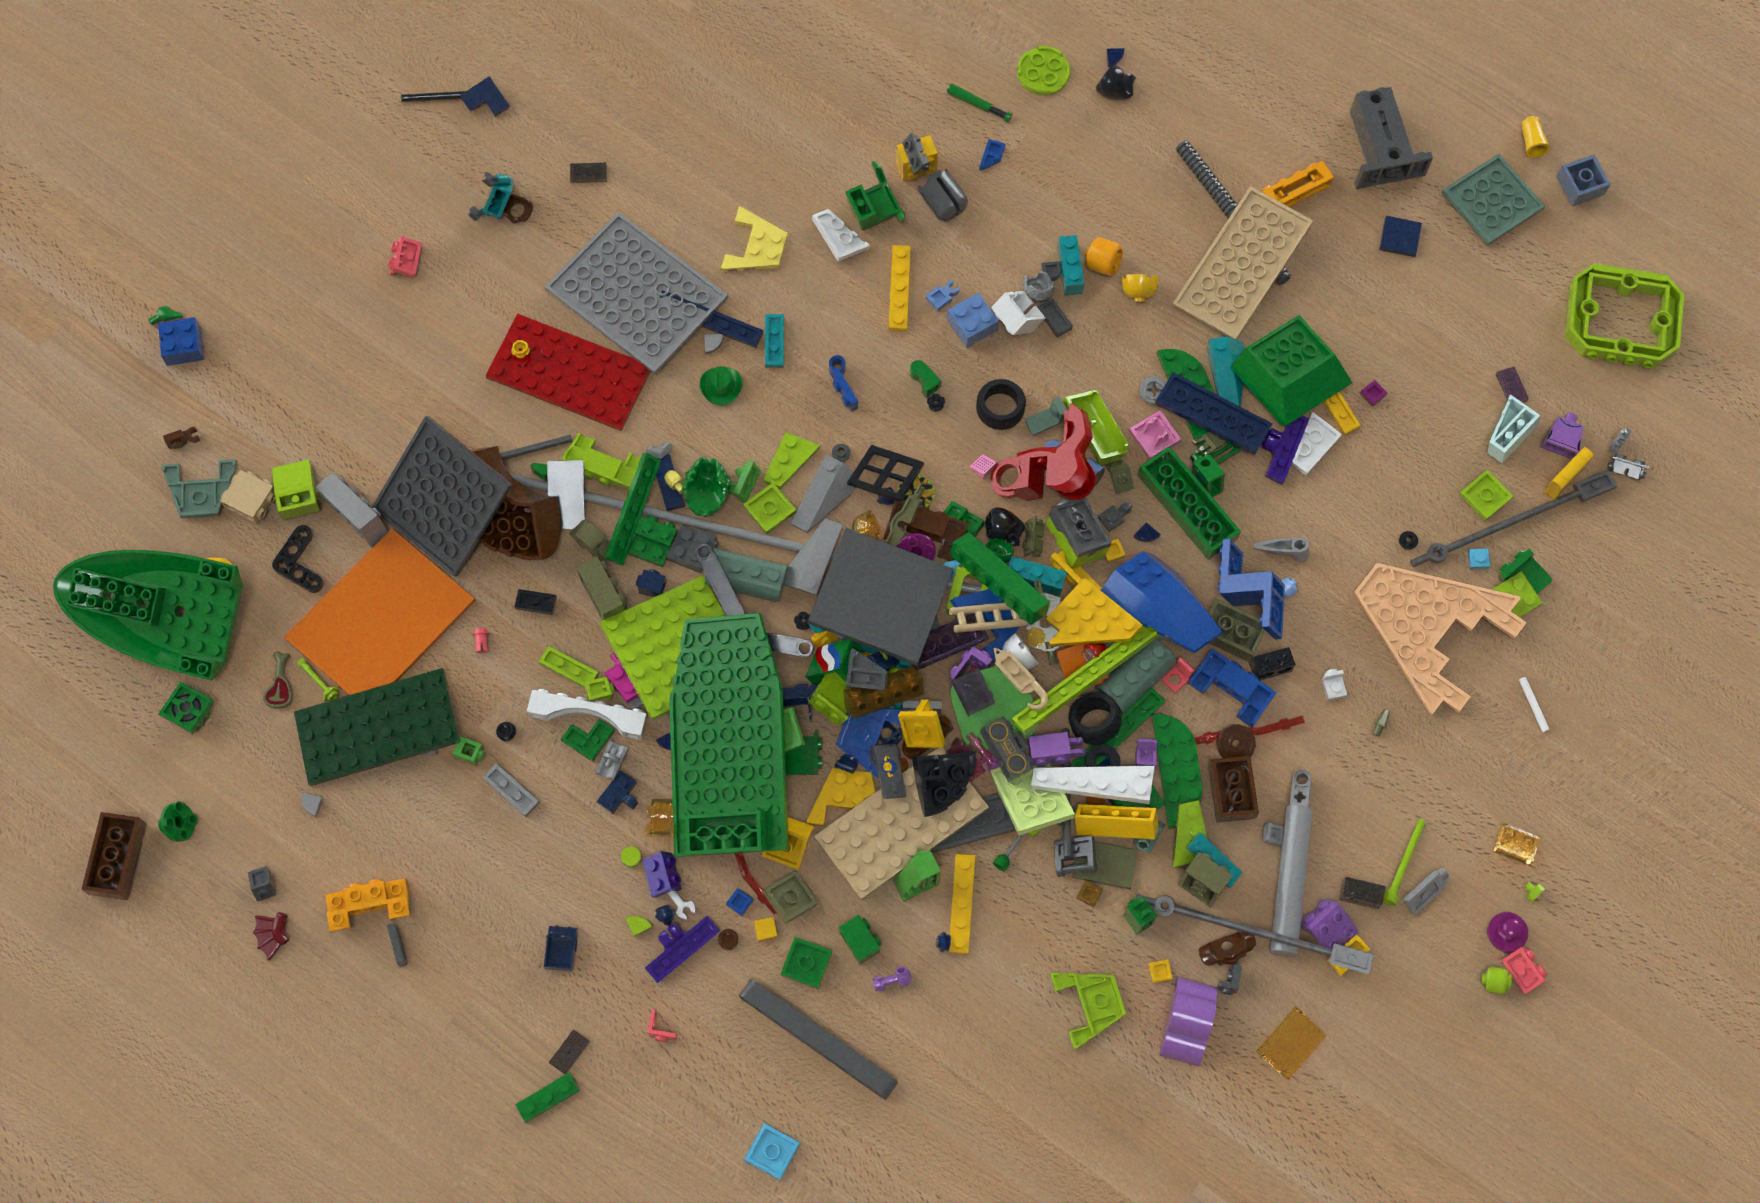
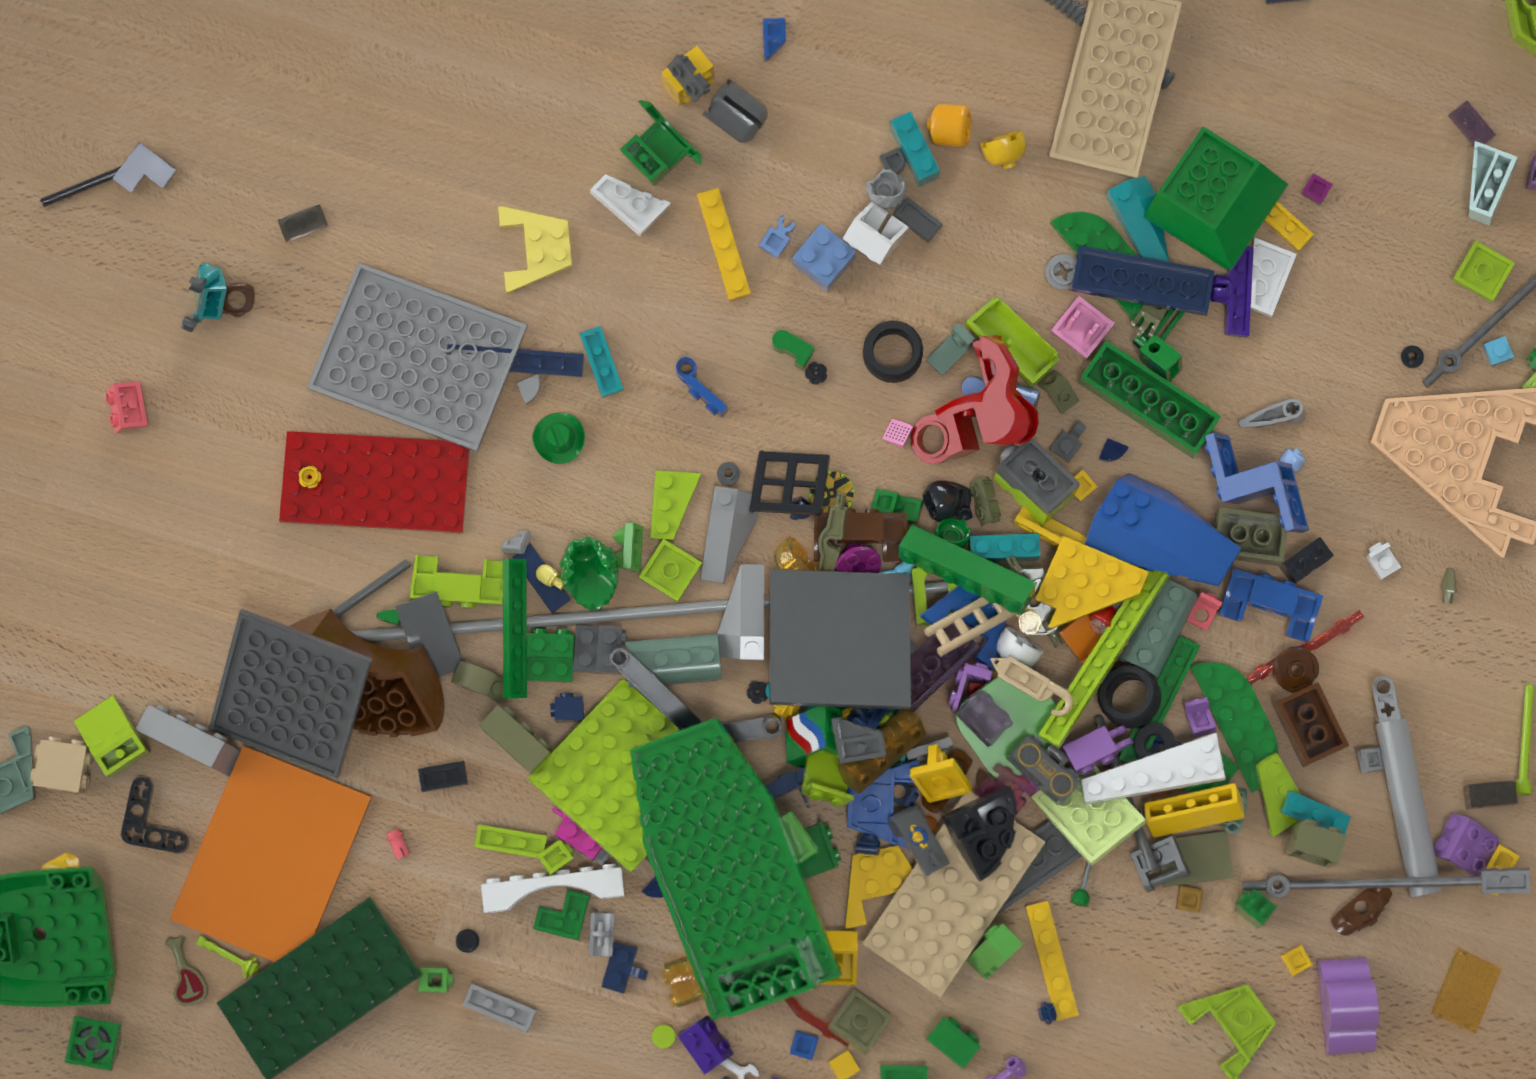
camera: 15 degrees left, 10 degrees up
(1233, 977) = (1381, 941): dark grey bracket -> none

